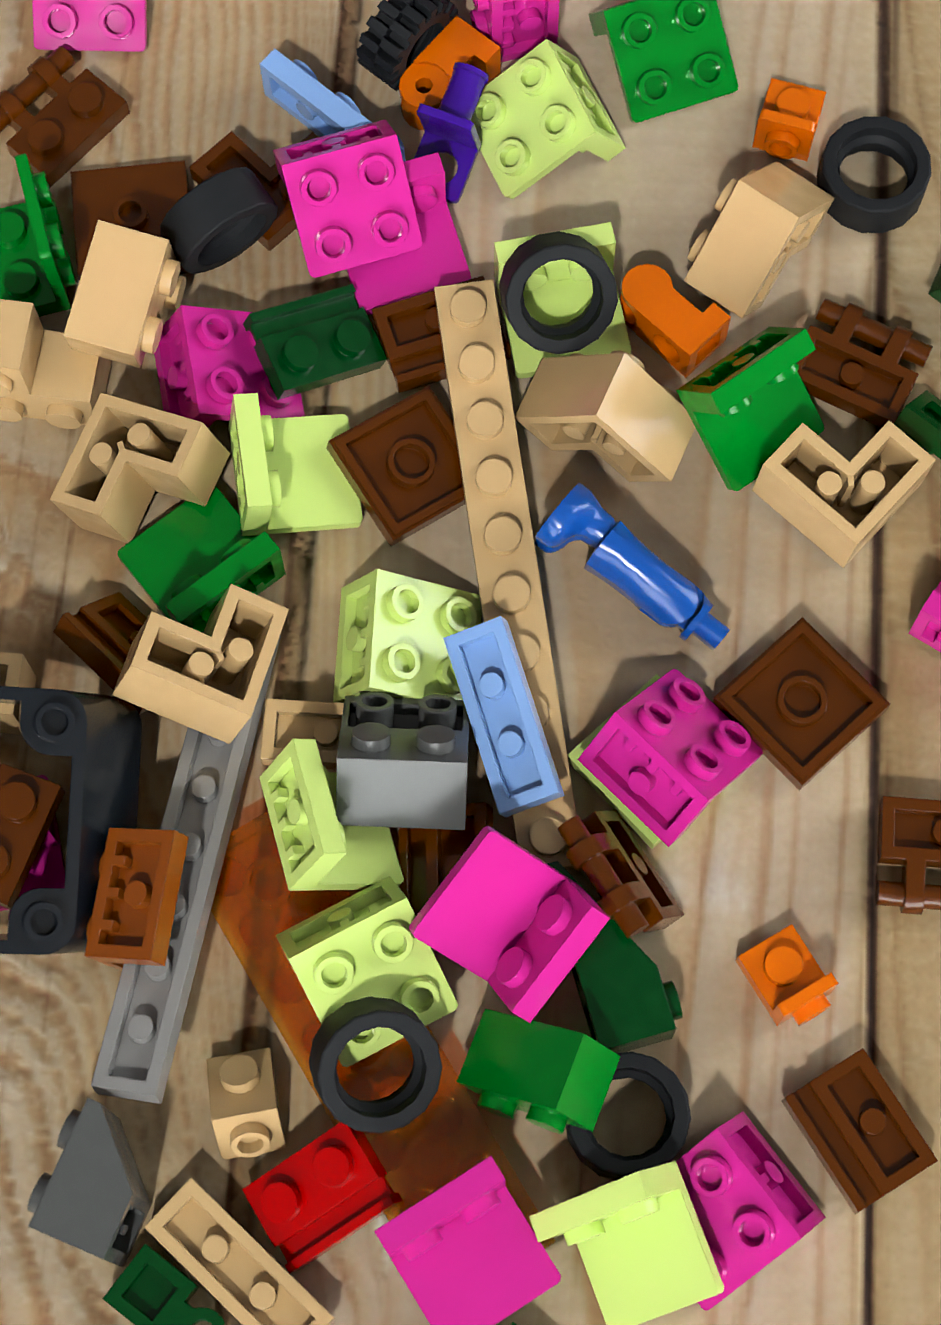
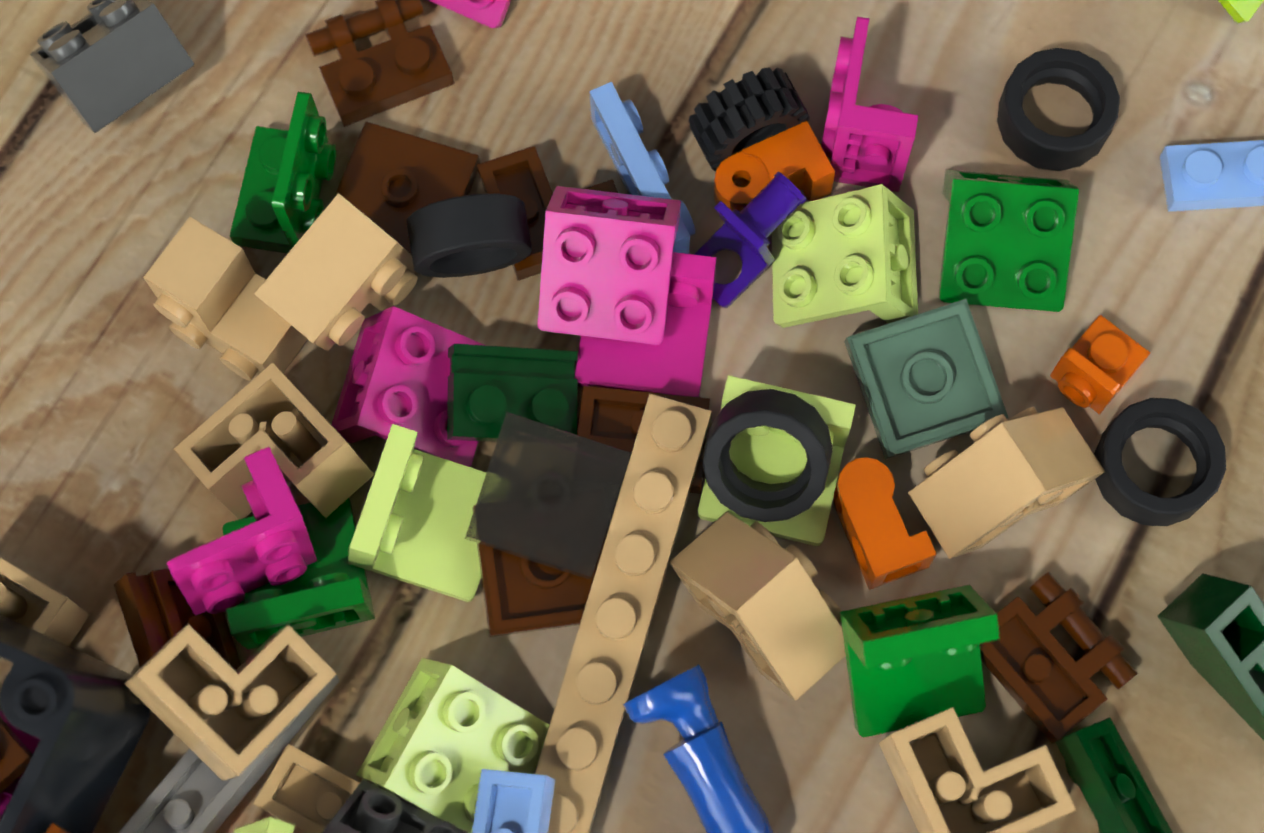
camera: 25 degrees right, 0 degrees up
(171, 547) = (261, 553): none -> dark pink bracket
(388, 405) = (548, 496): none -> clear smoke plate
(652, 187) = (925, 378): none -> sand green plate

